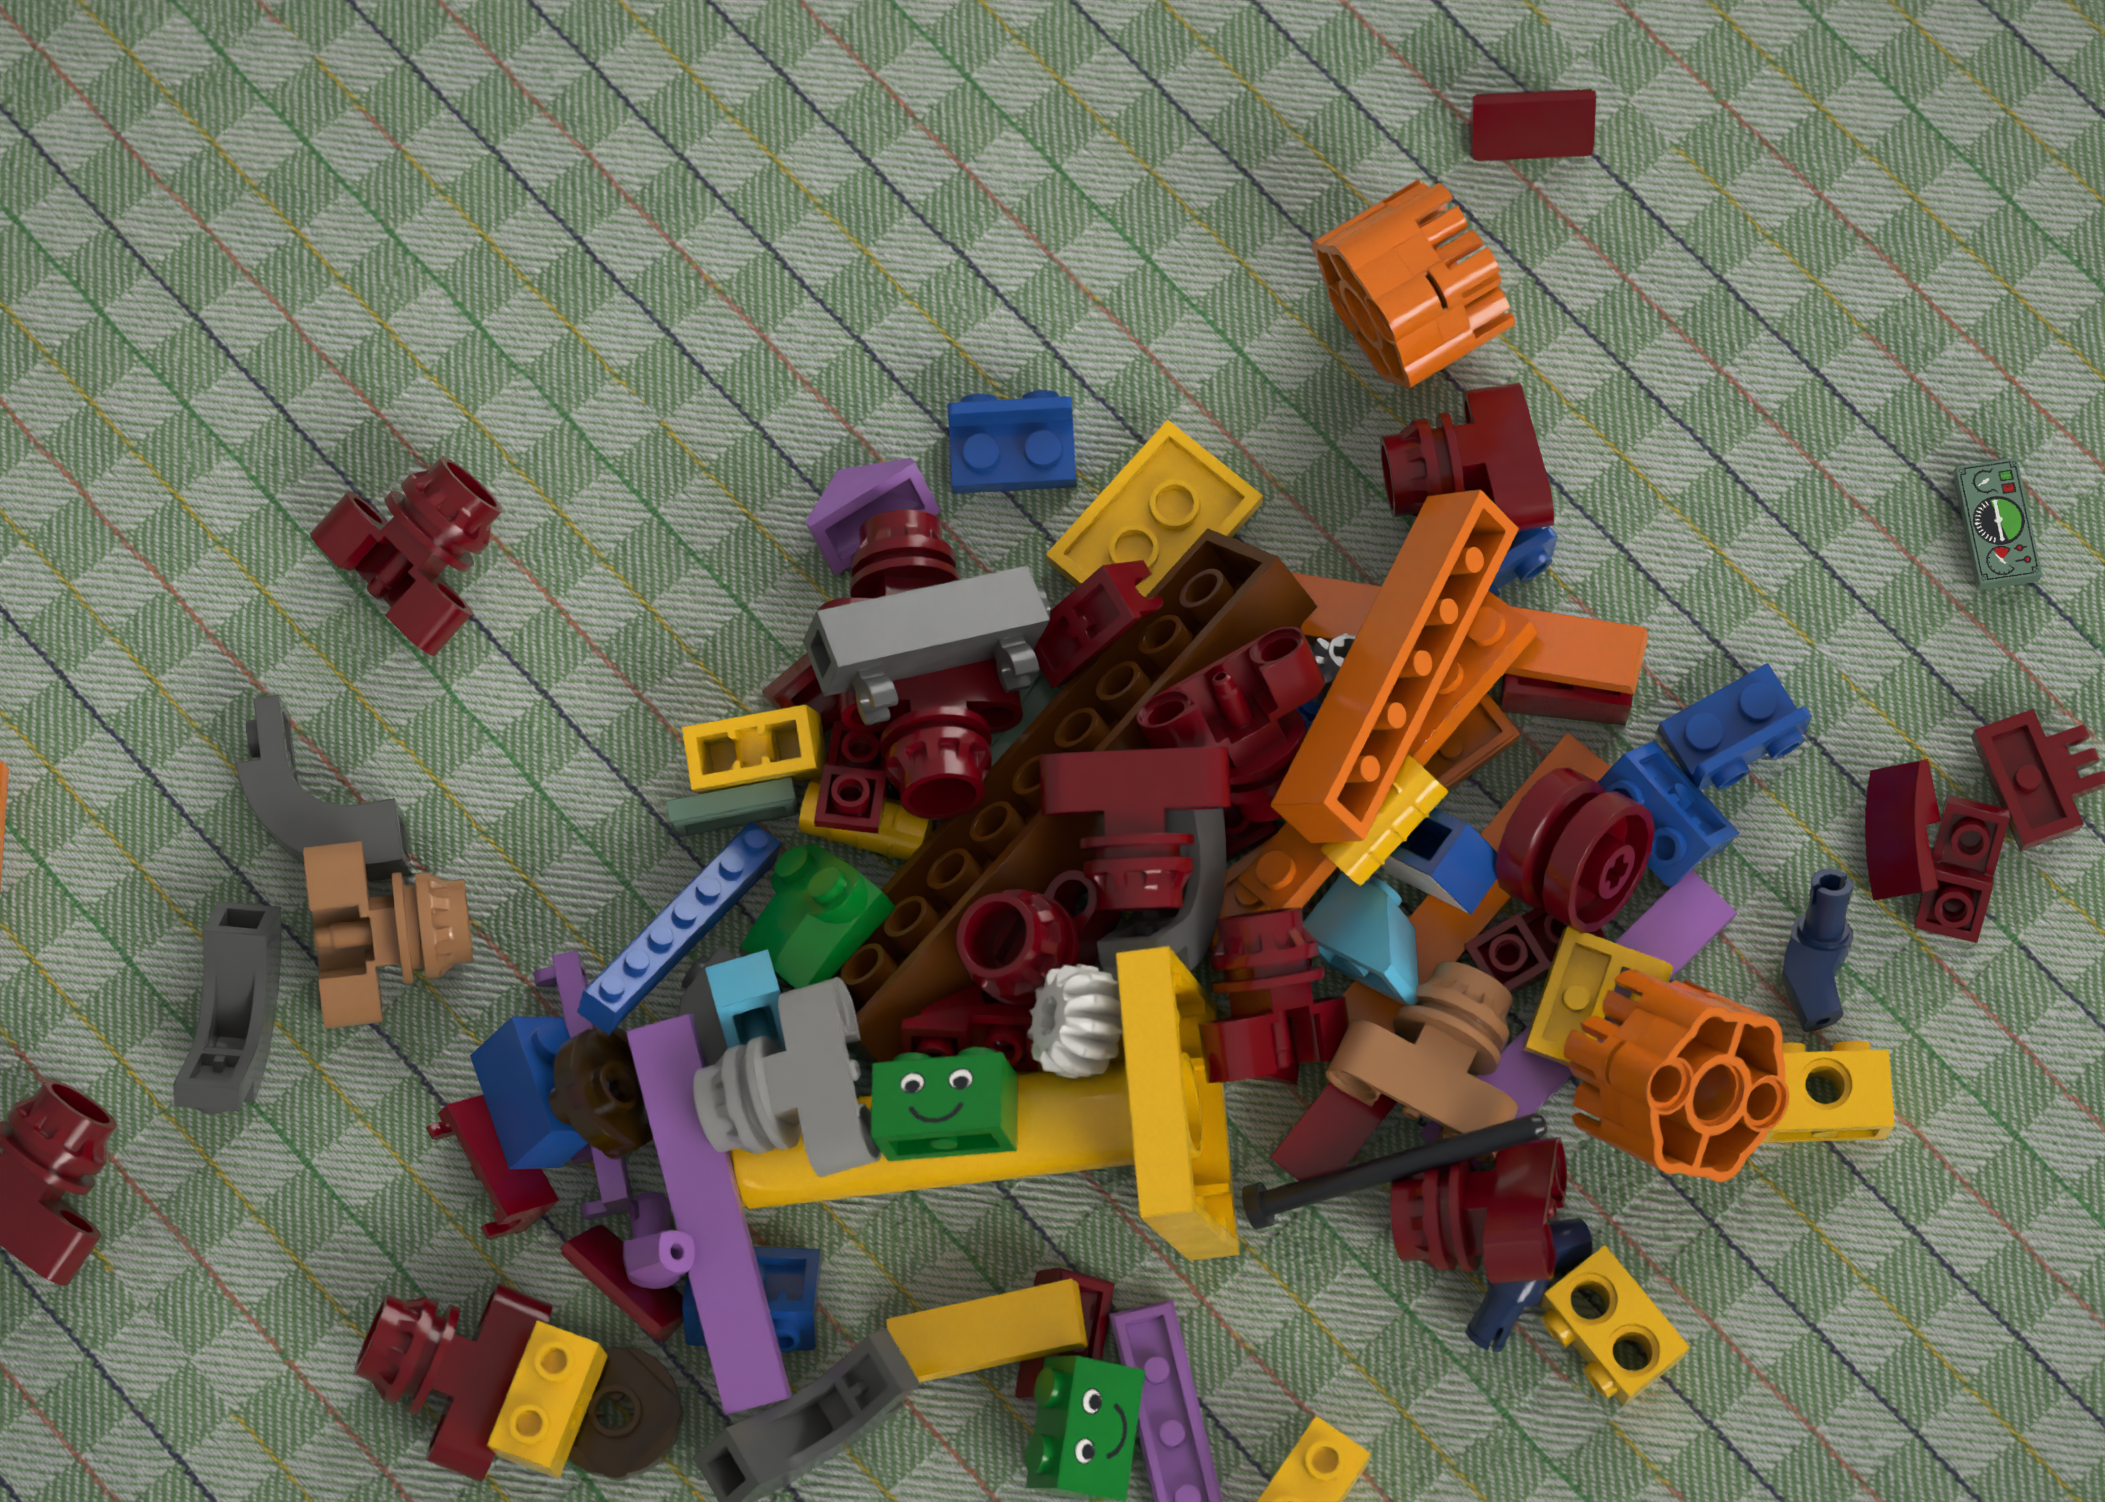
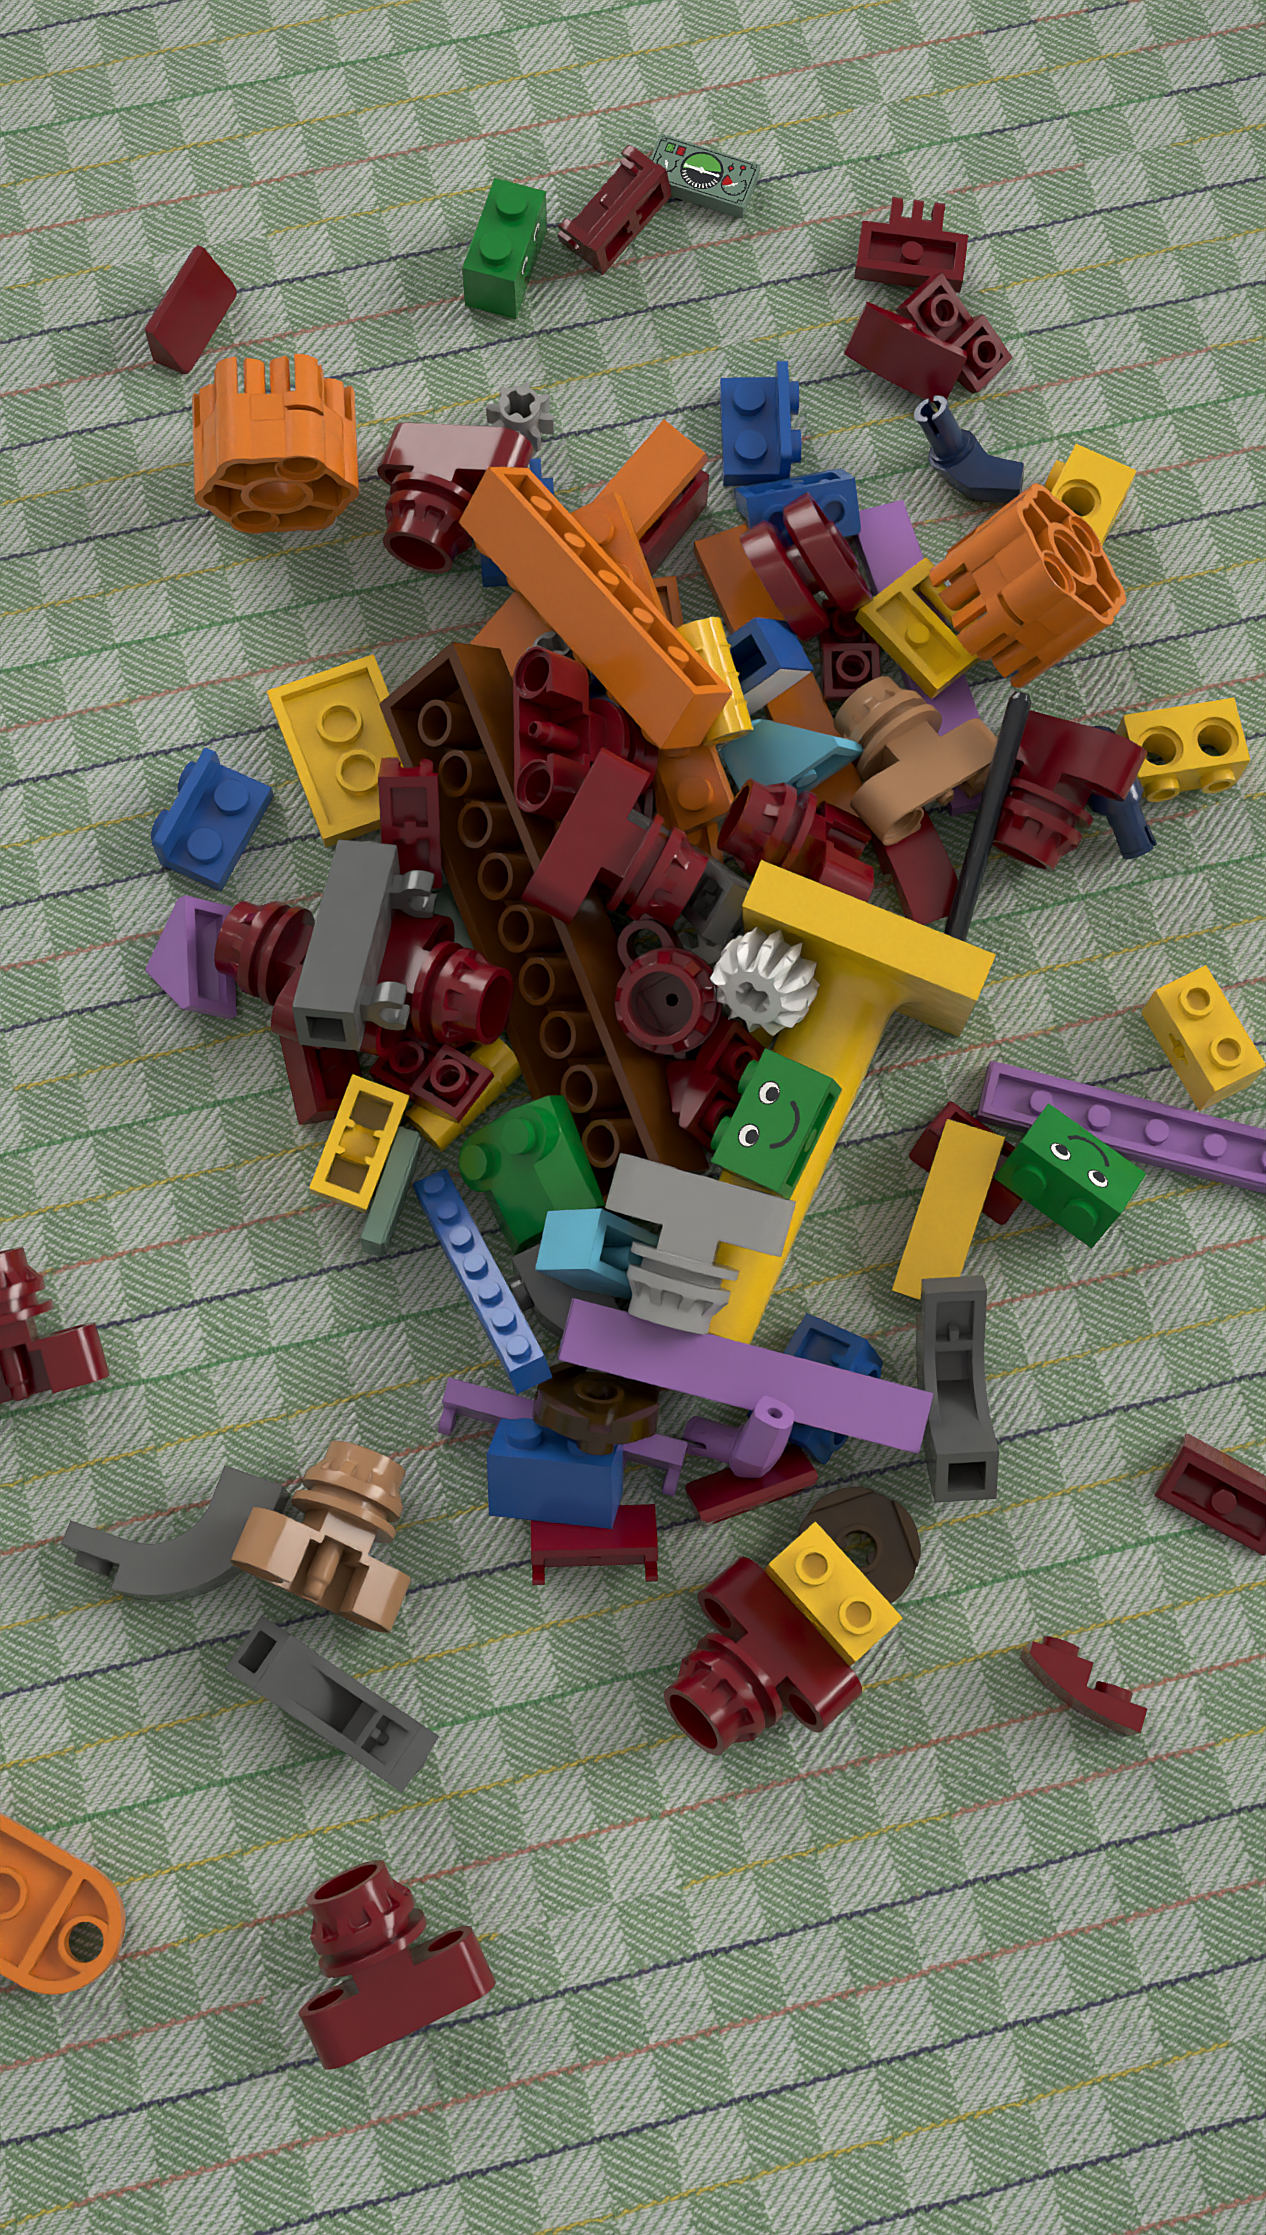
camera: 70 degrees left, 0 degrees up
(1595, 477) = (522, 412): none -> light grey gear
(1781, 378) = (504, 248): none -> green brick
(1892, 462) = (617, 211): none -> dark red hinge

